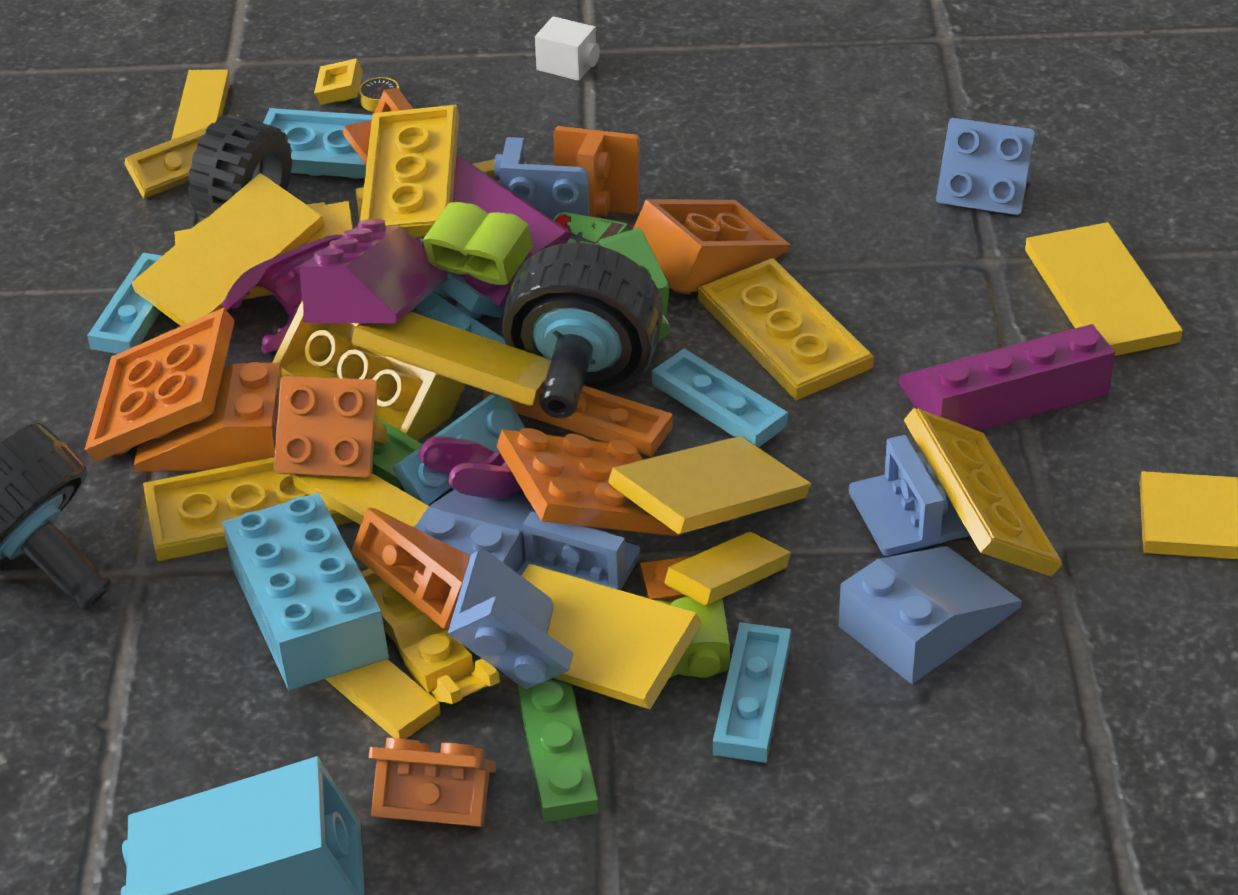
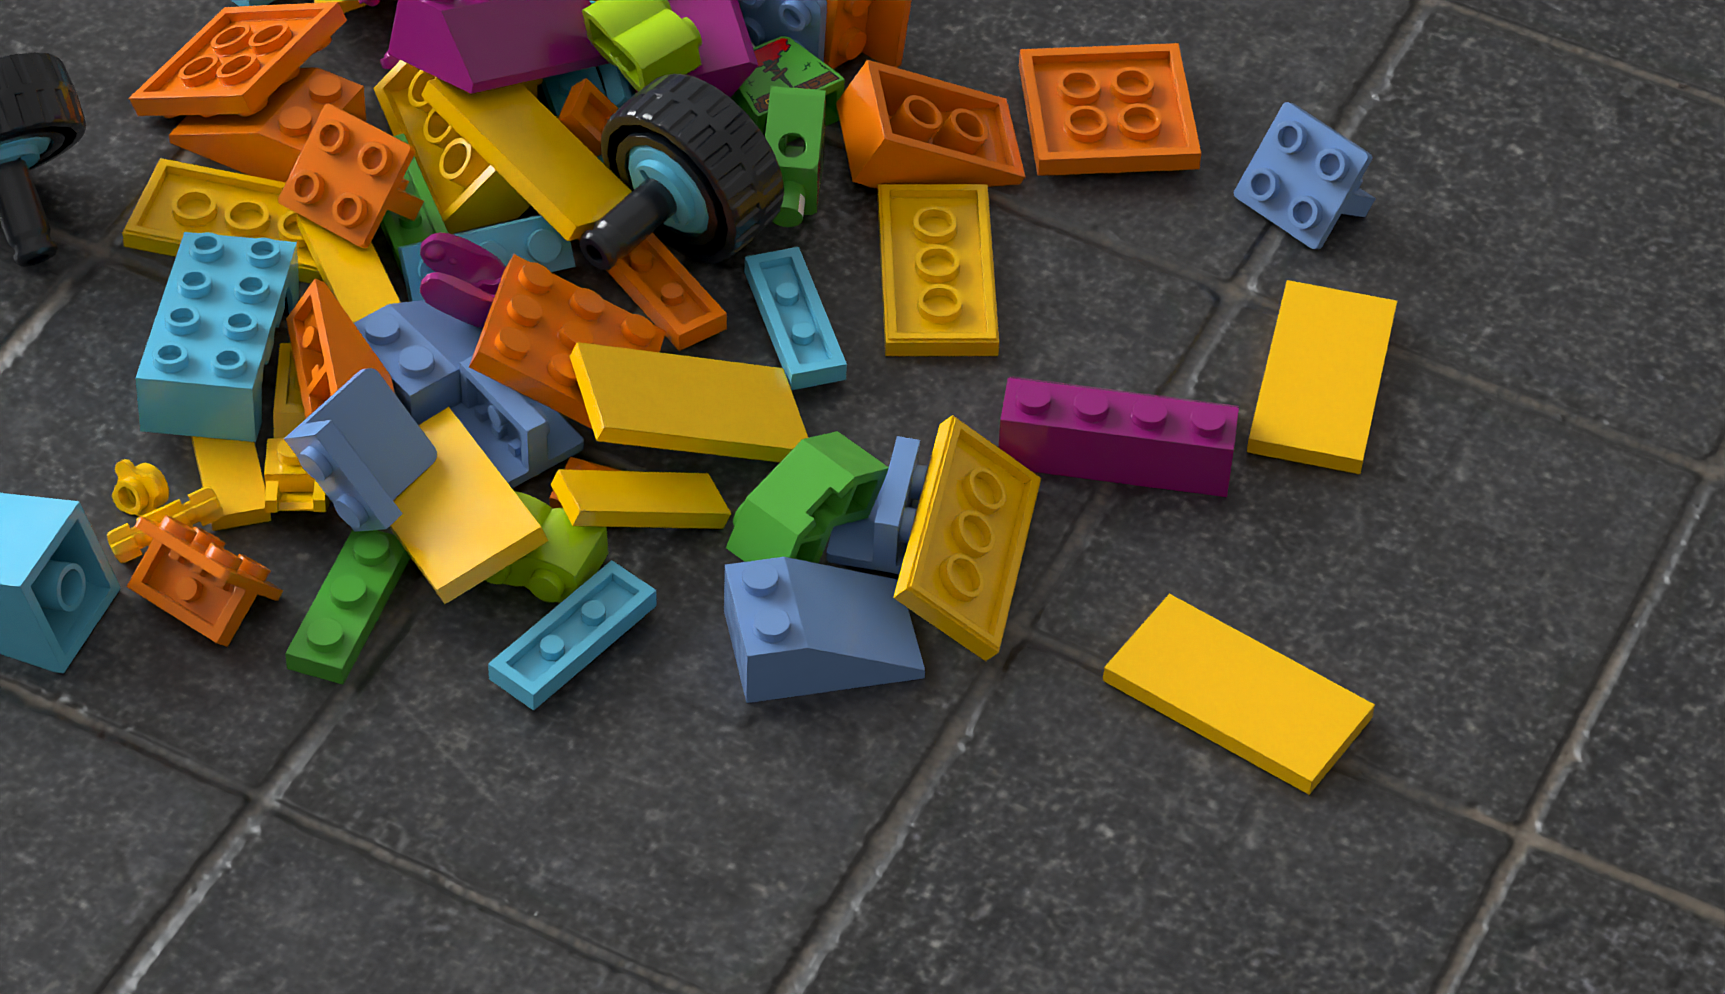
camera: 25 degrees right, 5 degrees up
(328, 725) = (139, 488): none -> yellow plate
(357, 765) = (202, 507): none -> yellow axle
(468, 315) = (587, 114): none -> orange plate
(811, 179) = (1109, 109): none -> orange plate
(852, 516) = (804, 497): none -> bright green brick

